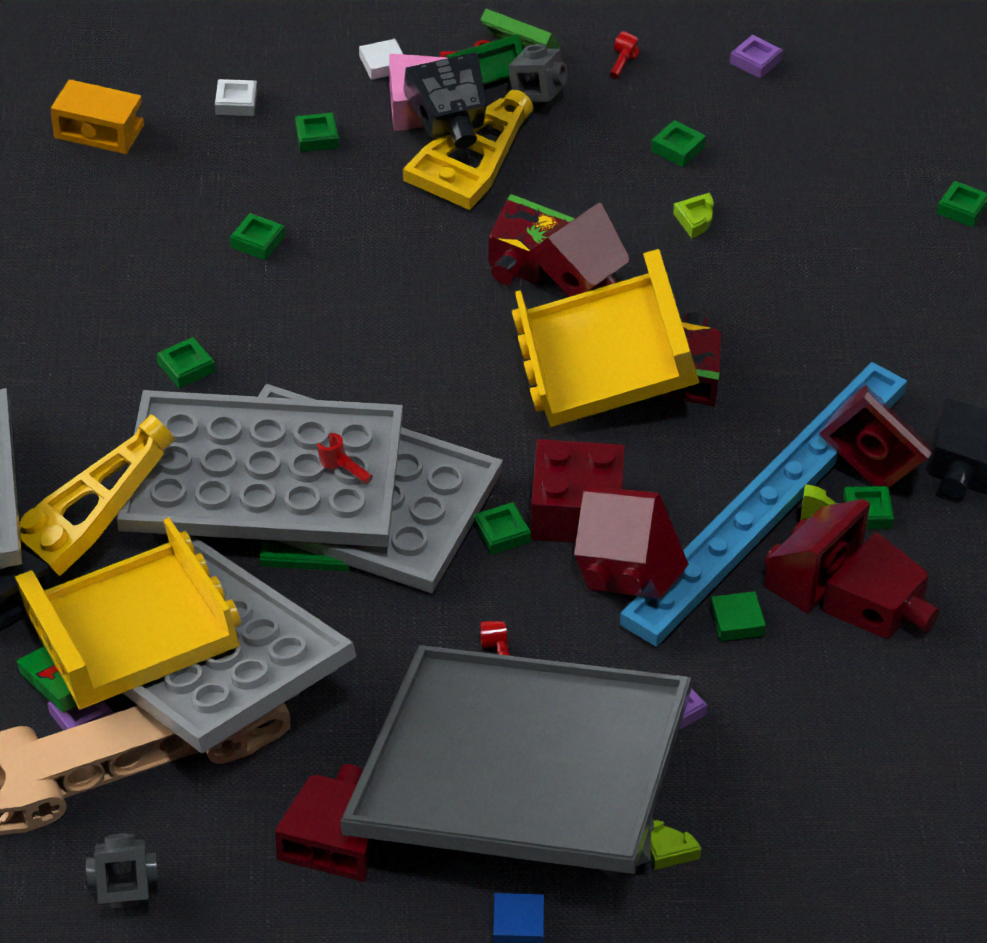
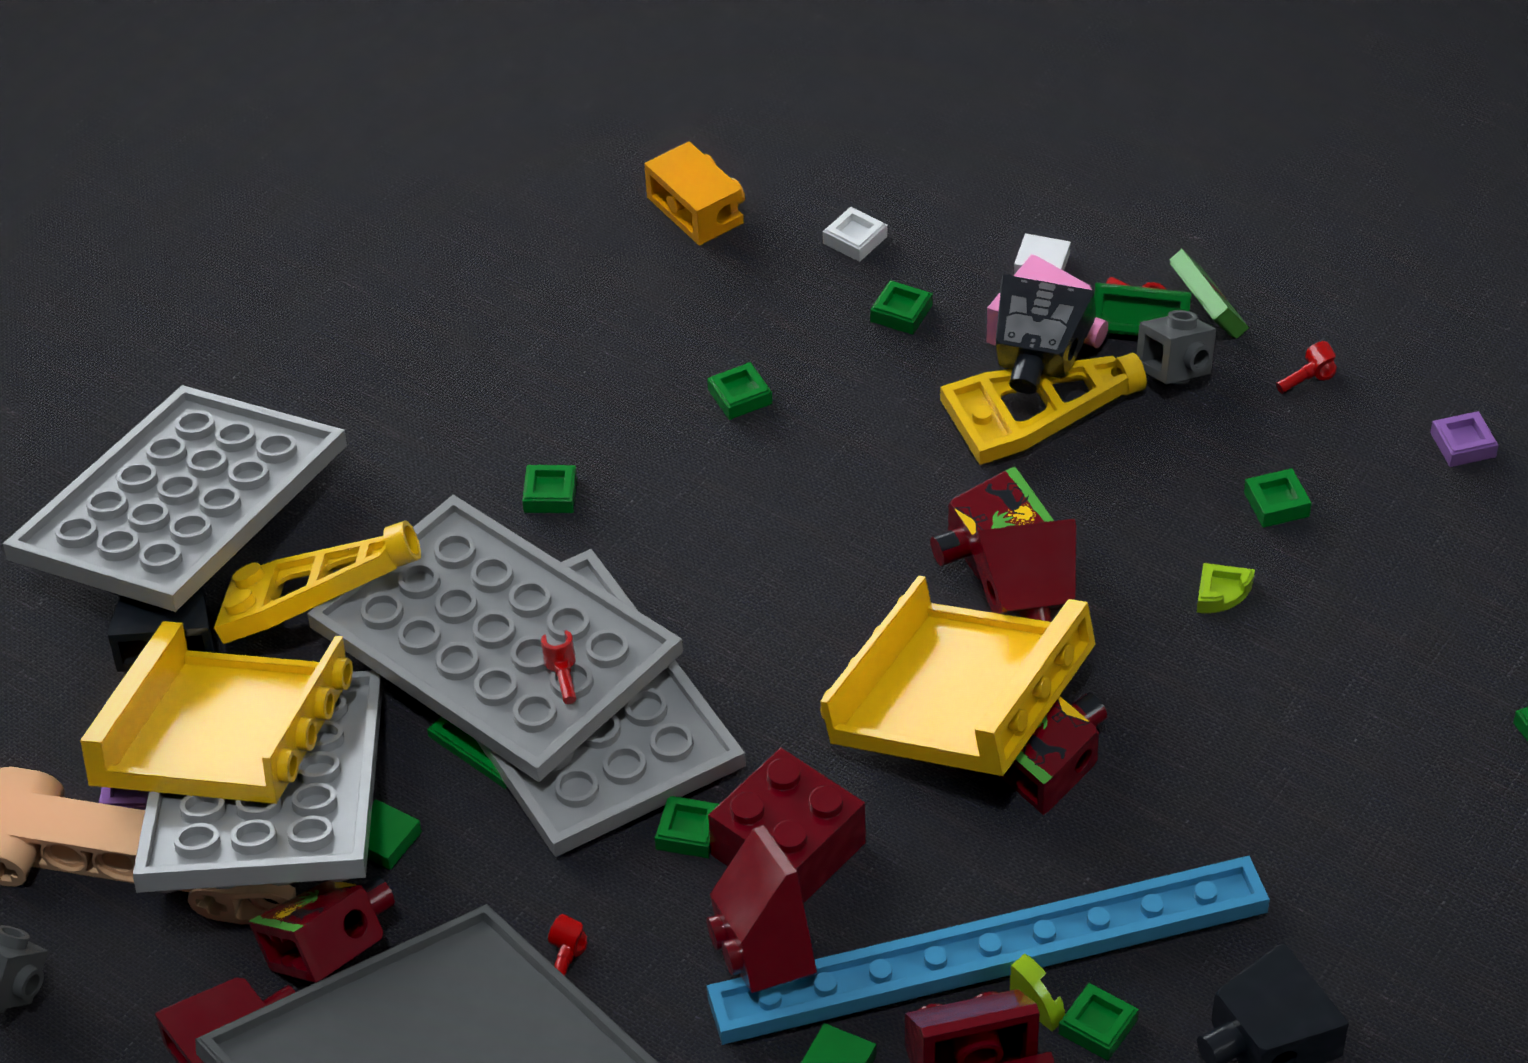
camera: 40 degrees right, 0 degrees up
(332, 719) = (322, 927): none -> dark red torso
(875, 439) = (1156, 942): dark red slope -> none

